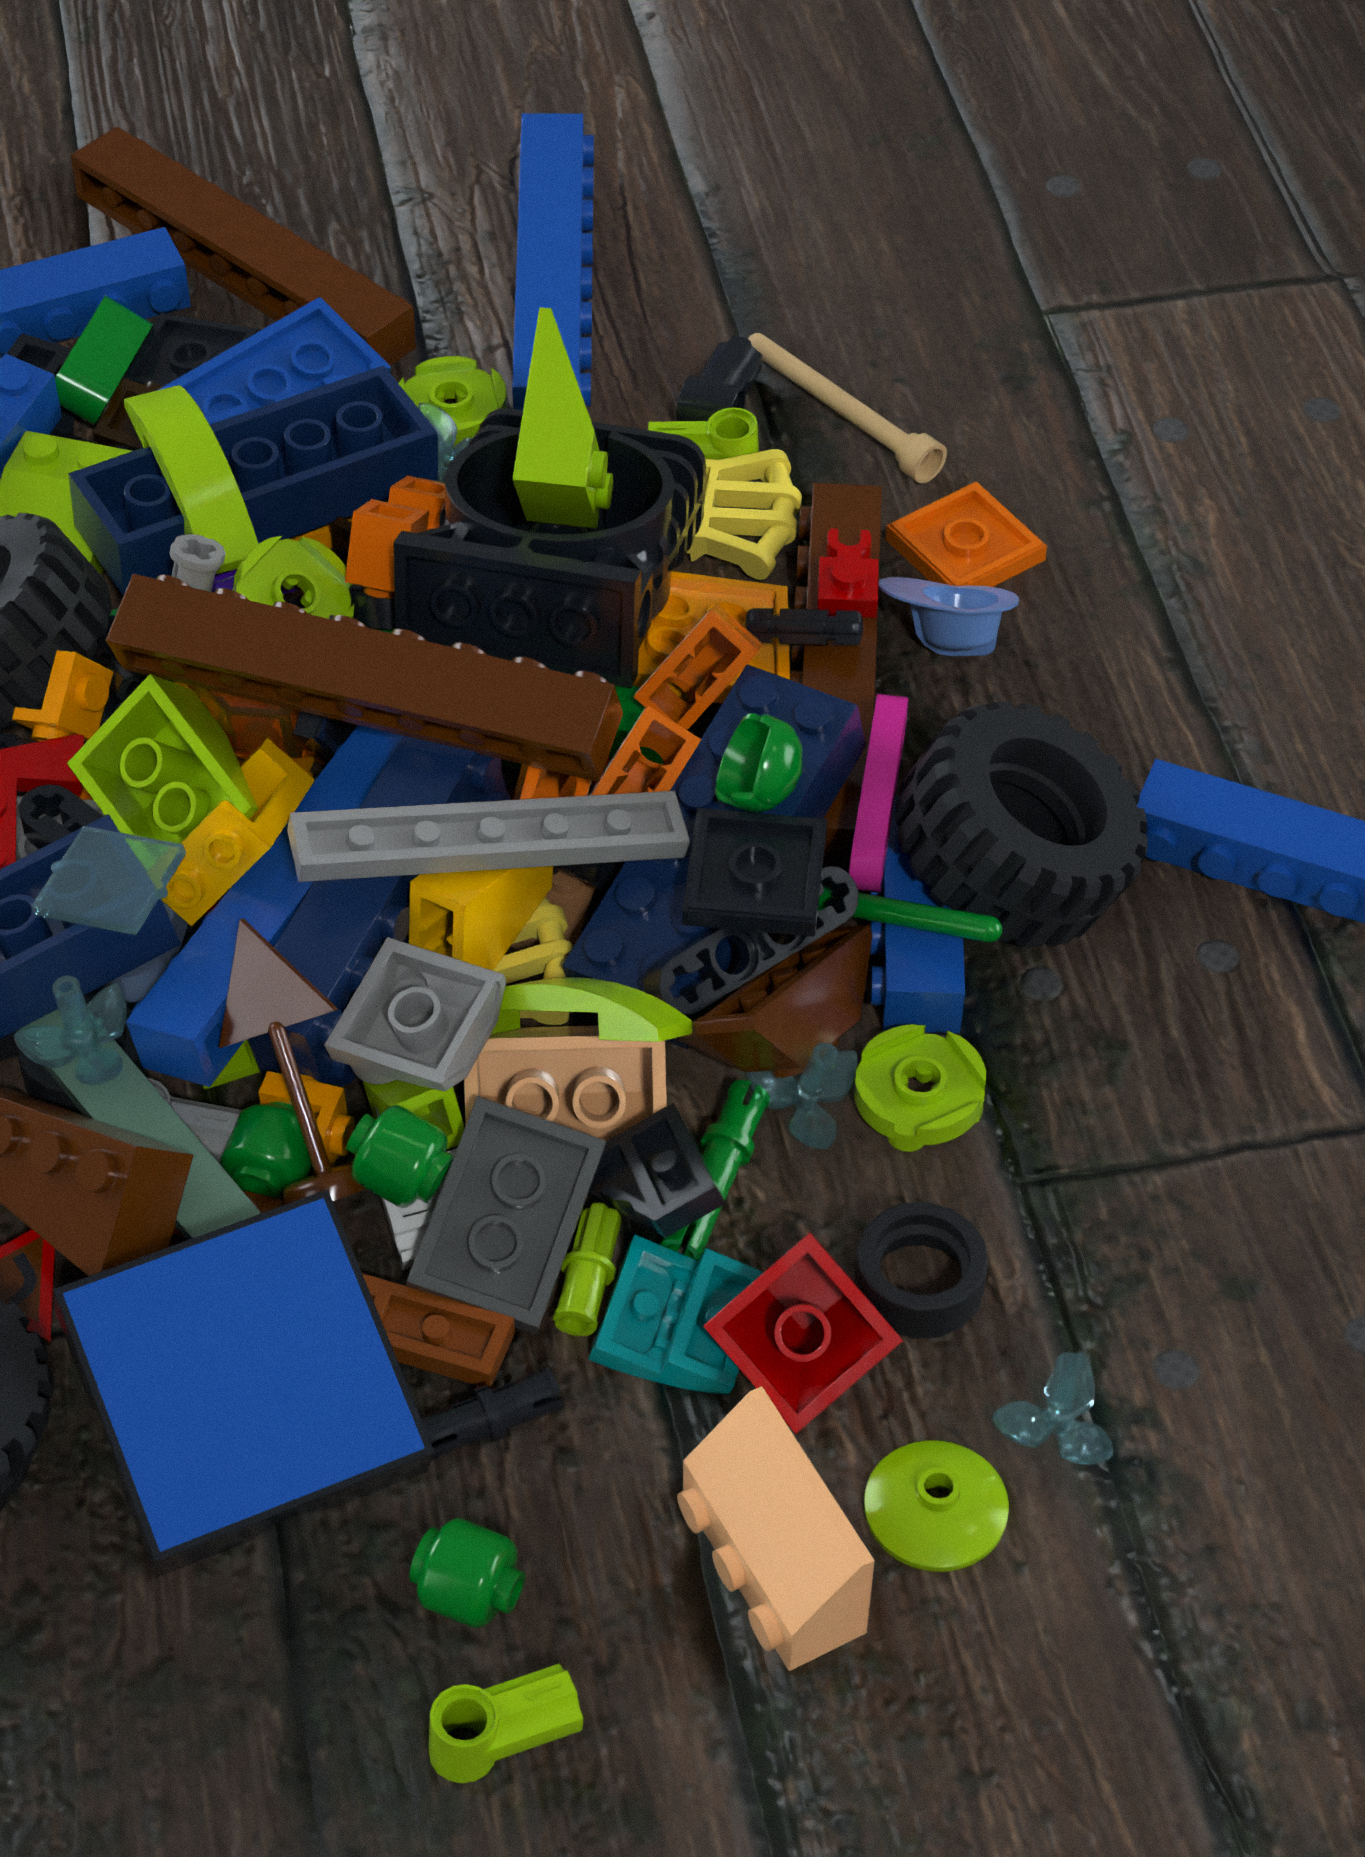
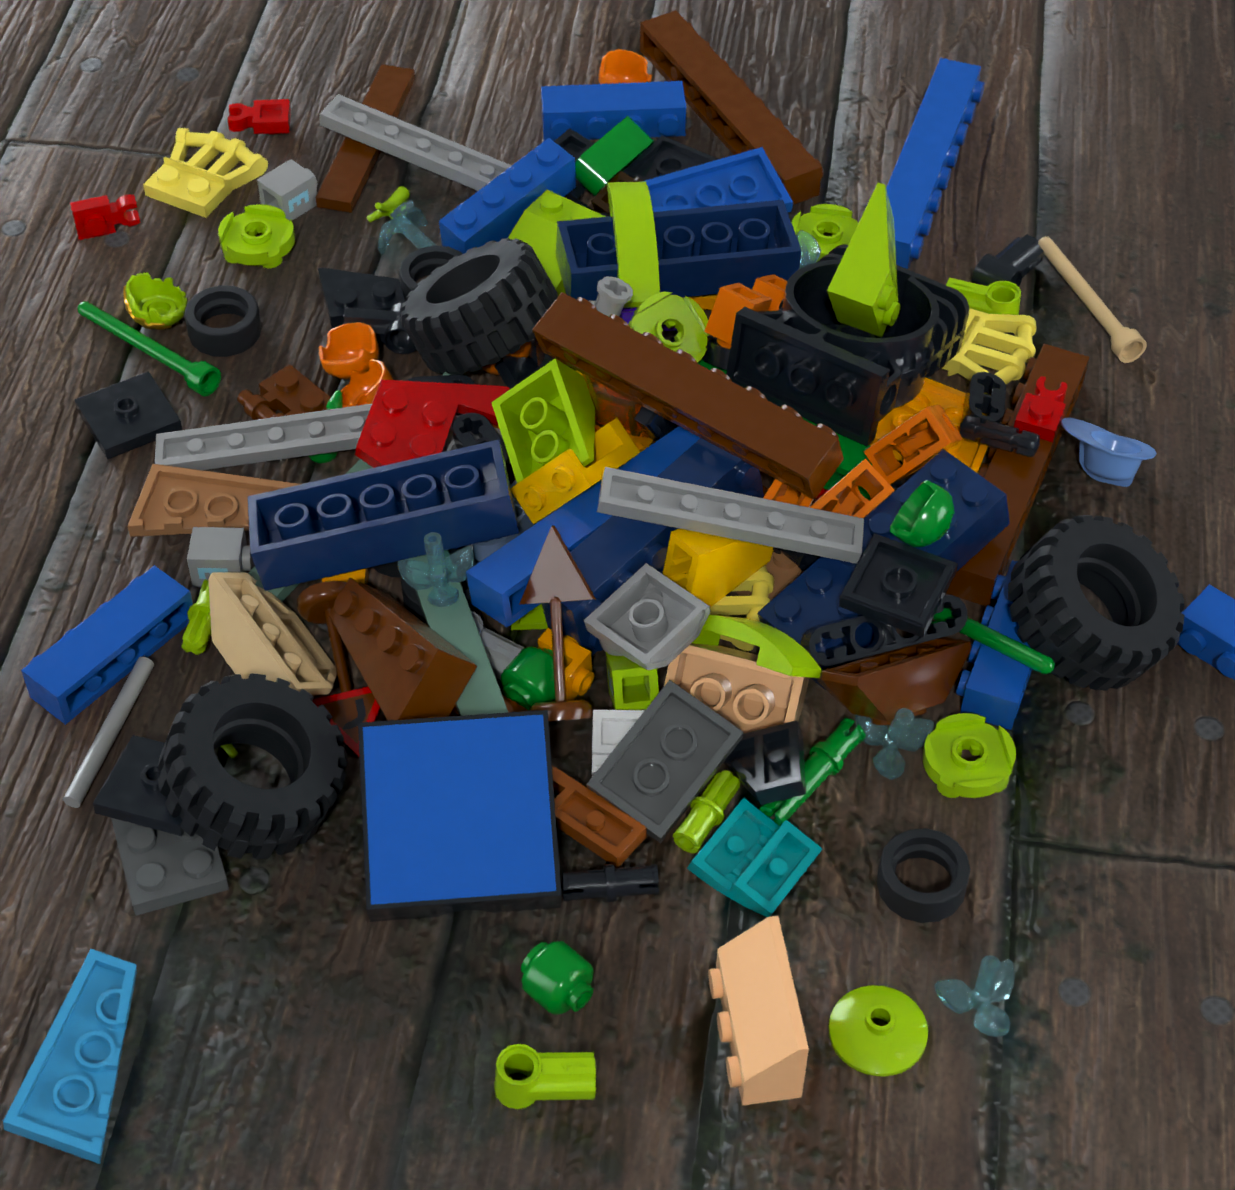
camera: 20 degrees right, 0 degrees up
(69, 227) = (623, 67): none -> orange hair
(71, 701) = (509, 363): light orange bracket -> none
(109, 880) = (483, 480): clear light blue piece -> none
(399, 1156) = (607, 704): green head -> none
(761, 579) = (991, 403): none -> black beam
(803, 1332) = (828, 890): red slope -> none
(878, 792) = (1011, 546): dark pink beam -> none
(966, 540) = (1139, 407): orange tile -> none

